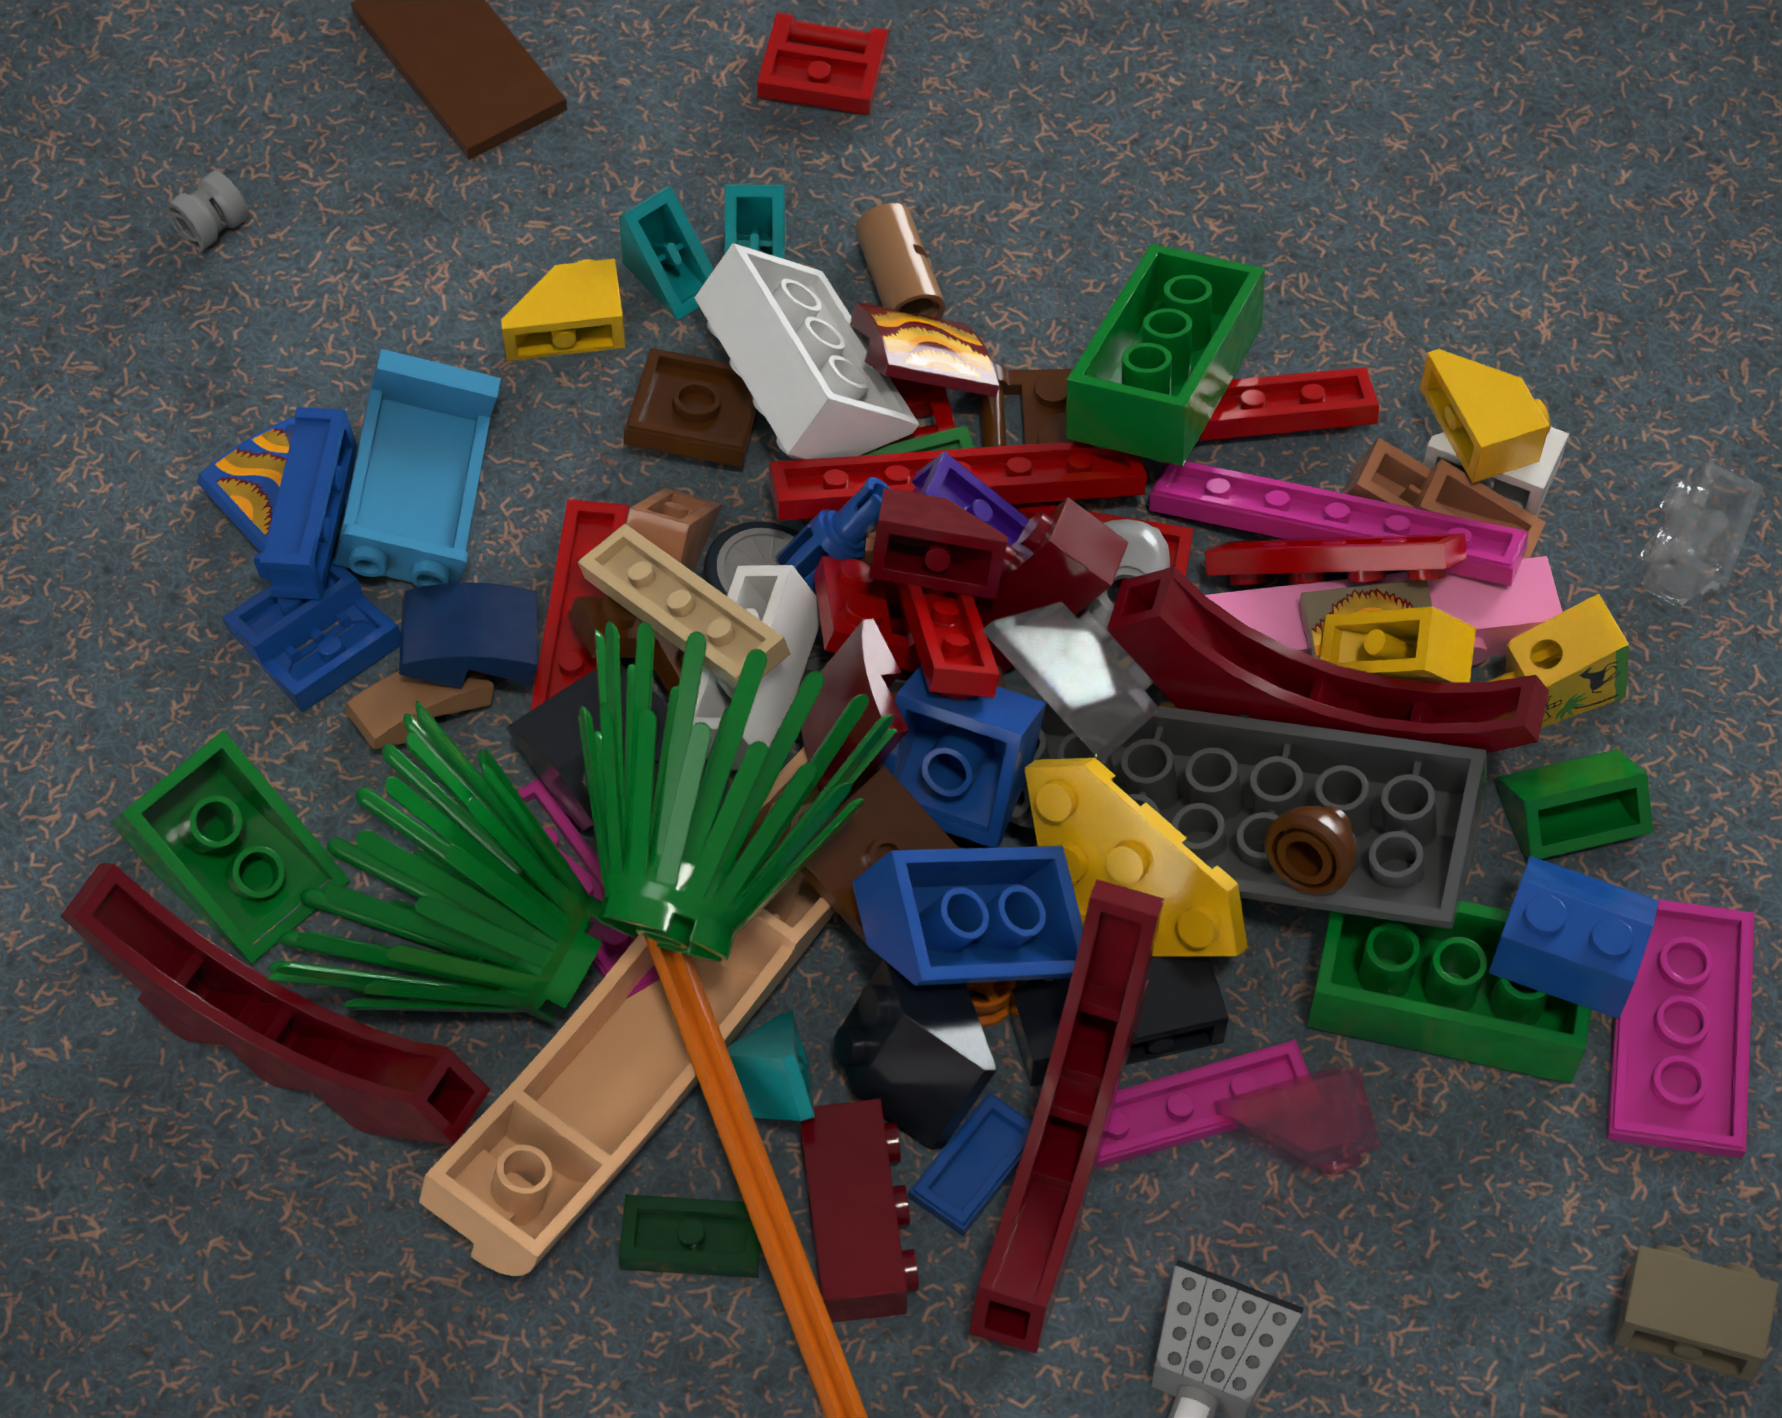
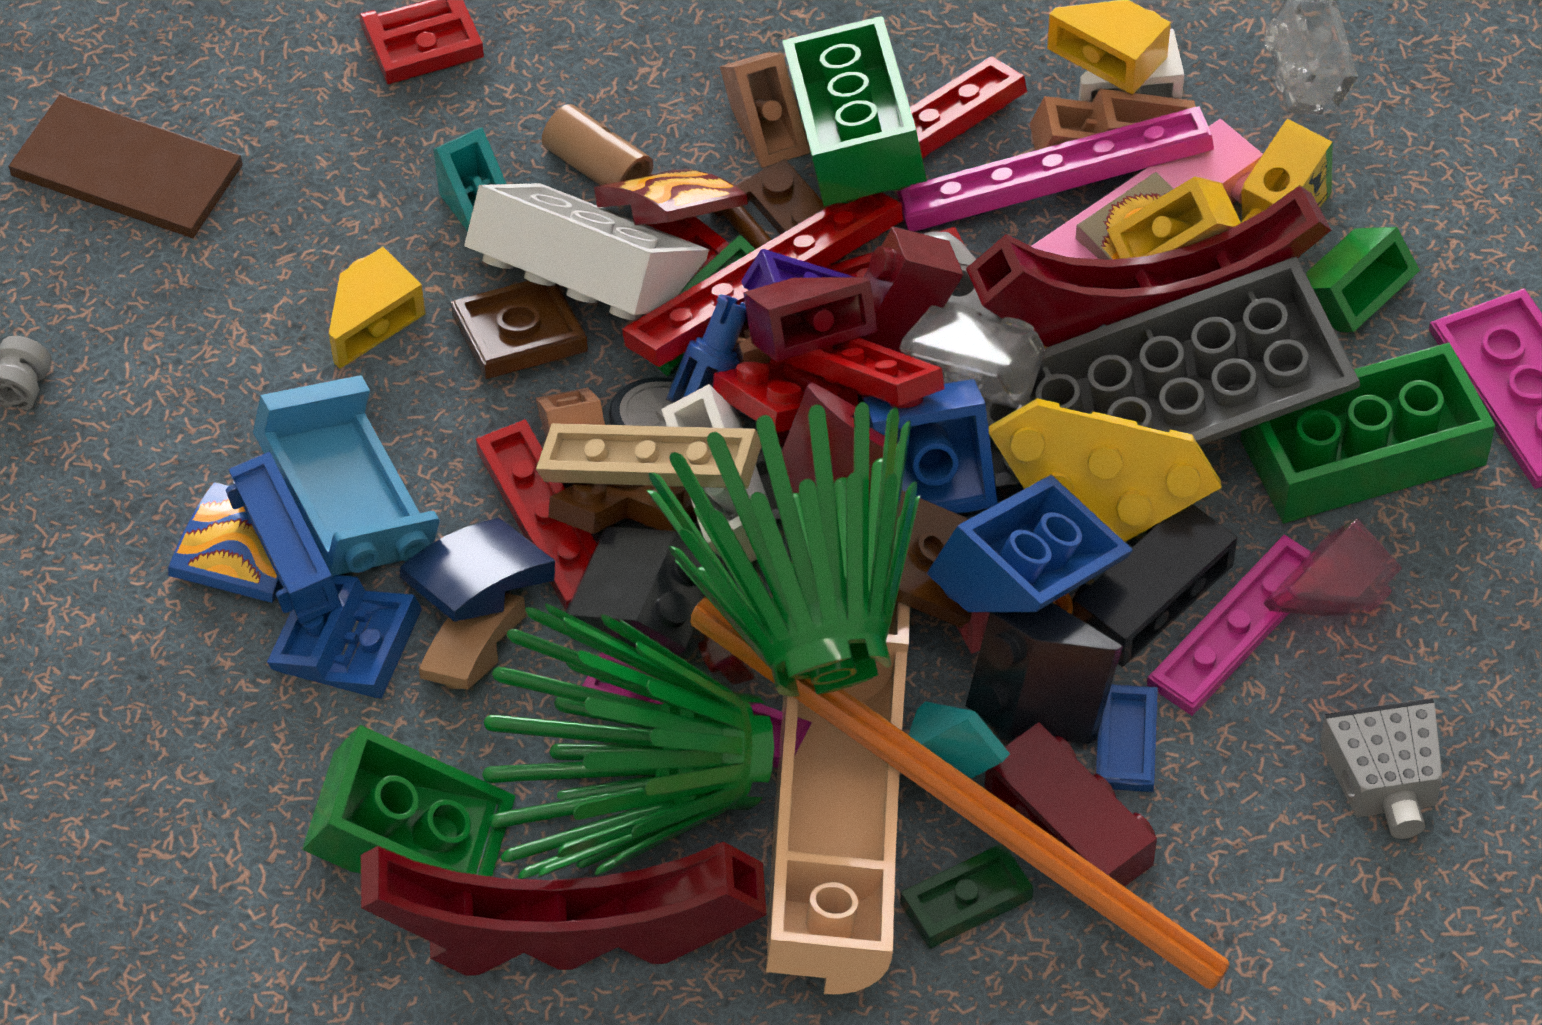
camera: 30 degrees left, 5 degrees down
(664, 252) = (414, 227): teal slope -> none
(1069, 1118) = (1186, 653): dark red arch -> none
(1095, 283) = (765, 107): none -> nougat slope
(1312, 849) = (1232, 382): reddish brown brick -> none
(1361, 557) = (1100, 180): red plate -> none
(1575, 937) = (1441, 354): blue slope -> none

